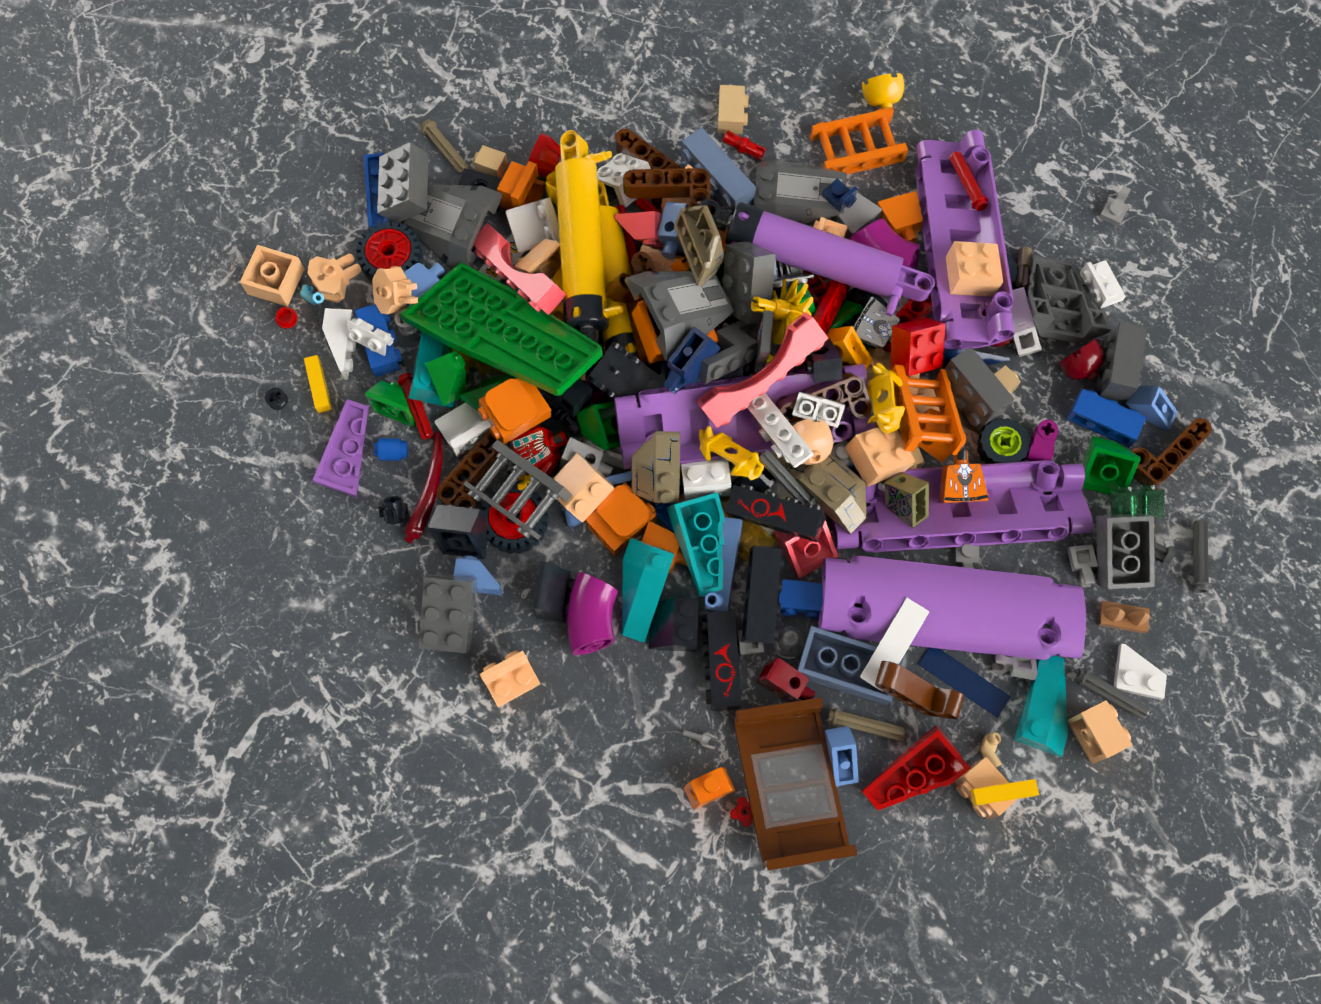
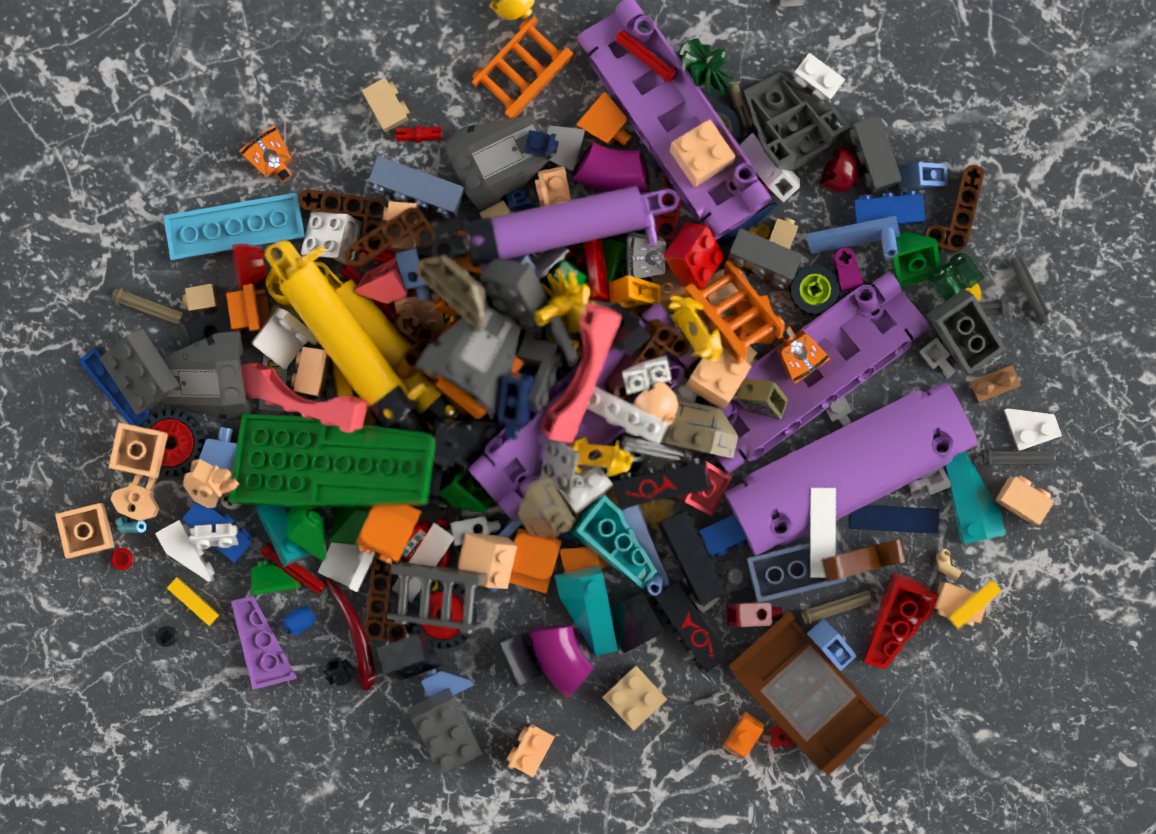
camera: 30 degrees left, 15 degrees up
(357, 233) = (138, 450): none -> light nougat brick
(529, 118) = (246, 222): none -> medium azure plate
(536, 453) = (428, 553): none -> white sticker
(616, 93) = (269, 154): none -> orange torso
(633, 690) = (634, 697): none -> tan brick
(696, 439) = (560, 465): none -> light grey hinge
(1015, 215) = (704, 65): none -> dark green piece
(1067, 417) = (856, 234): none -> medium blue piece

